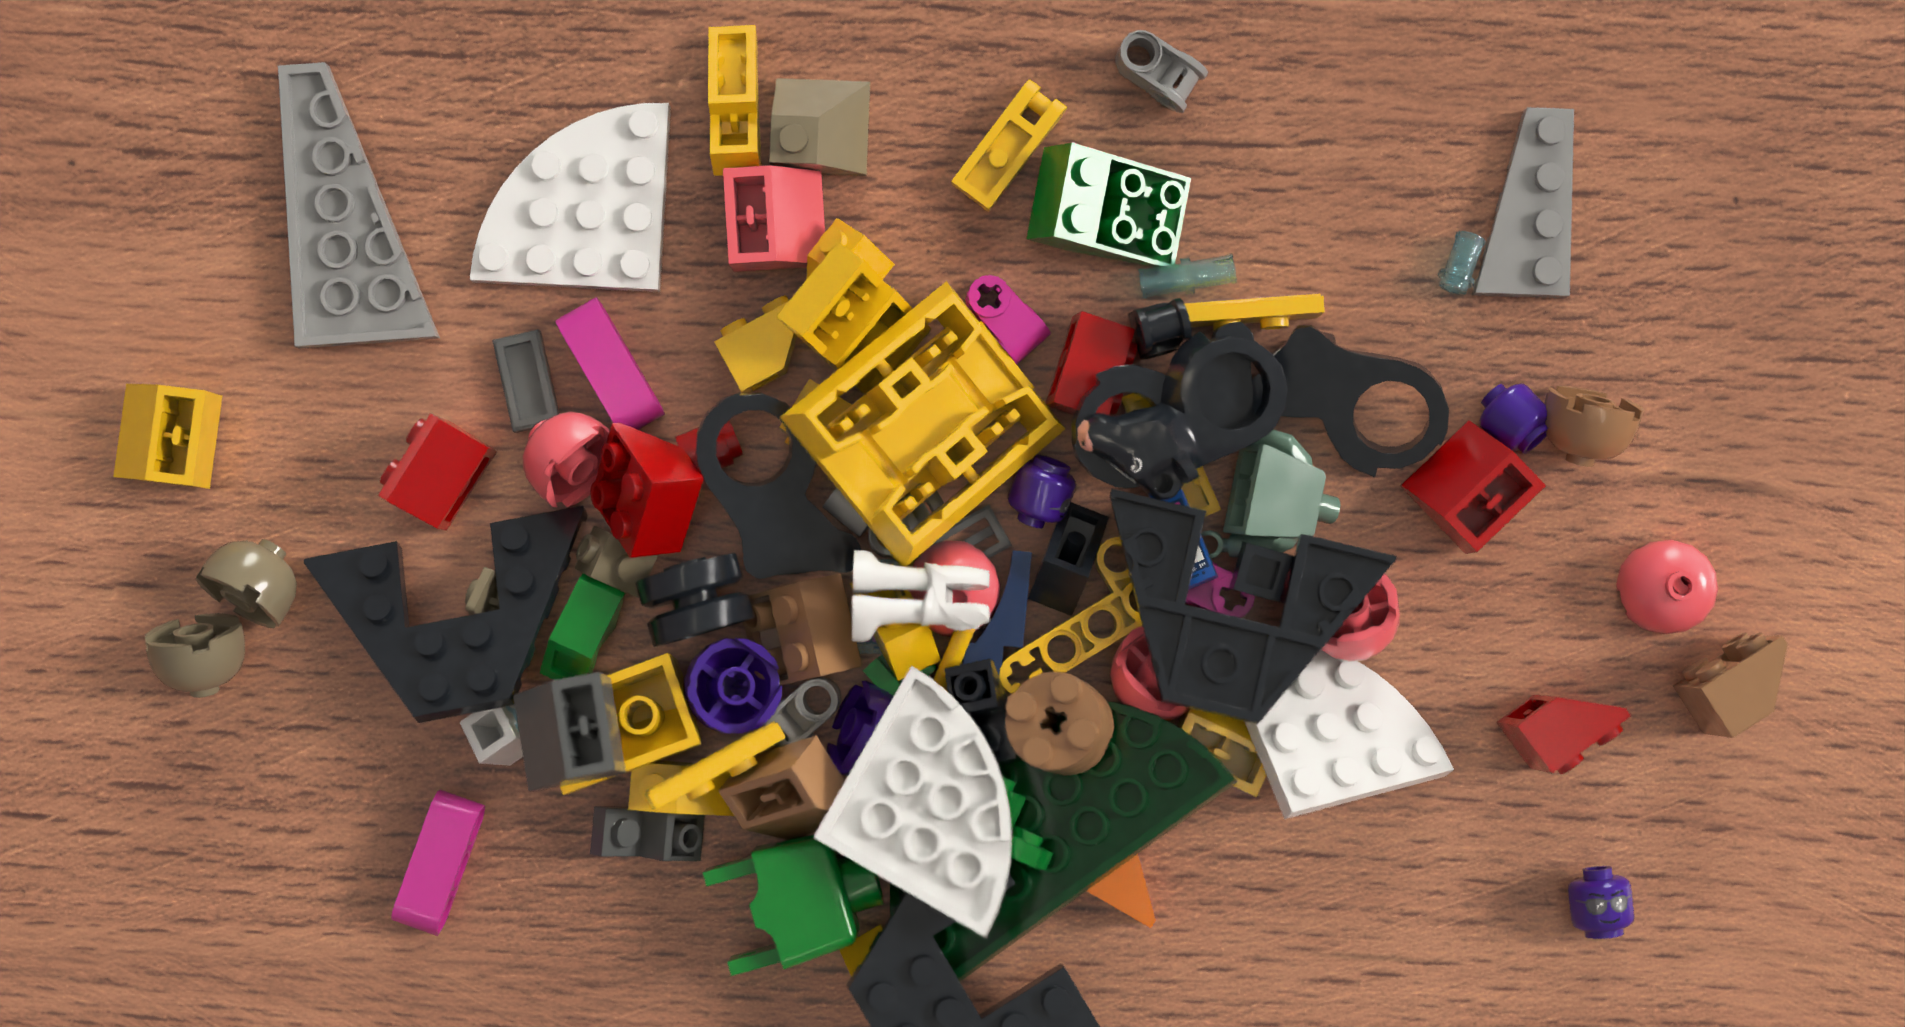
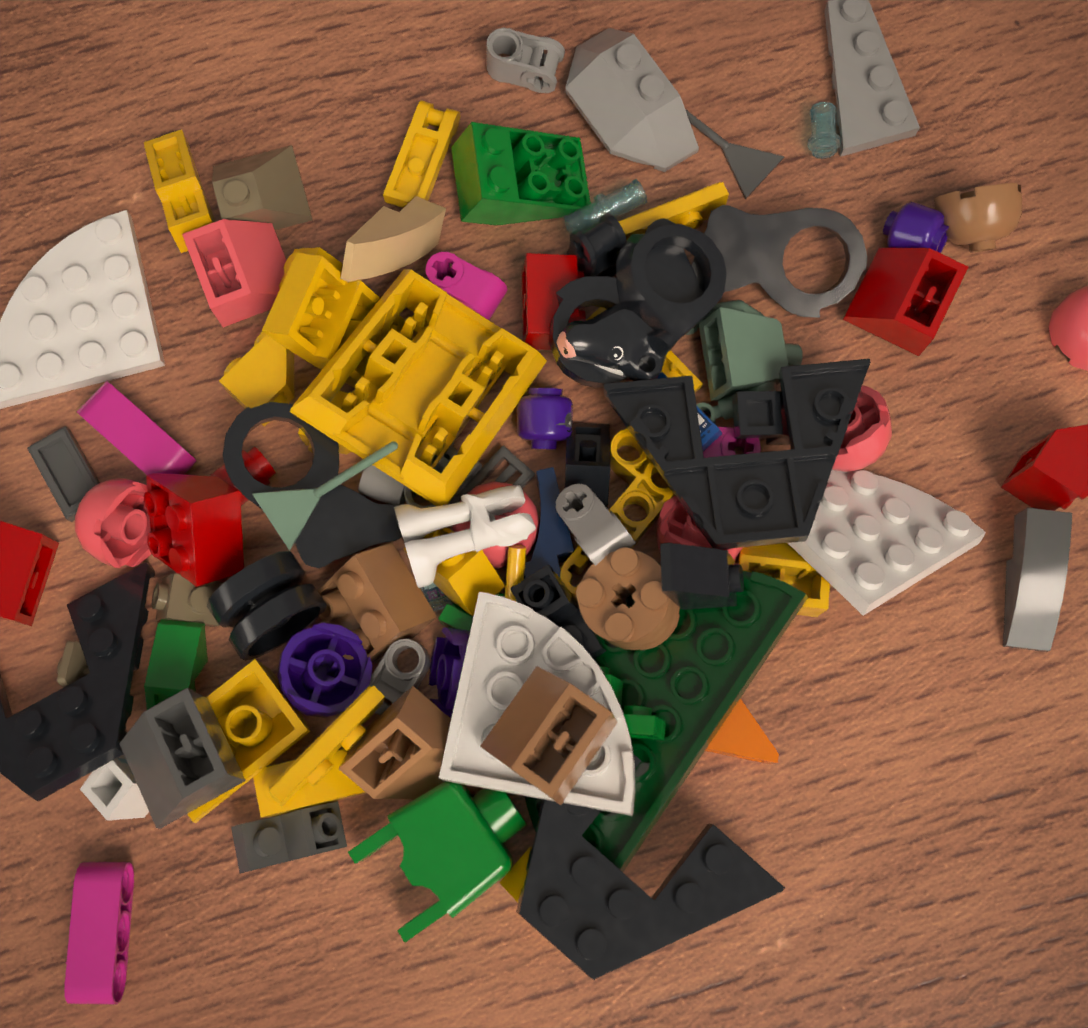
camera: 20 degrees left, 10 degrees down
(750, 514) = (292, 508): none -> sand green piece
(930, 836) = (550, 733): none -> medium nougat slope
(946, 247) = (392, 240): none -> tan slope
(1050, 637) = (591, 523): none -> light grey piece
(1135, 729) = (700, 576): none -> black slope
(1256, 154) = (630, 101): none -> light grey wedge
(1364, 269) = (747, 164): none -> dark grey piece
(1488, 833) = (1036, 578): none -> dark grey slope

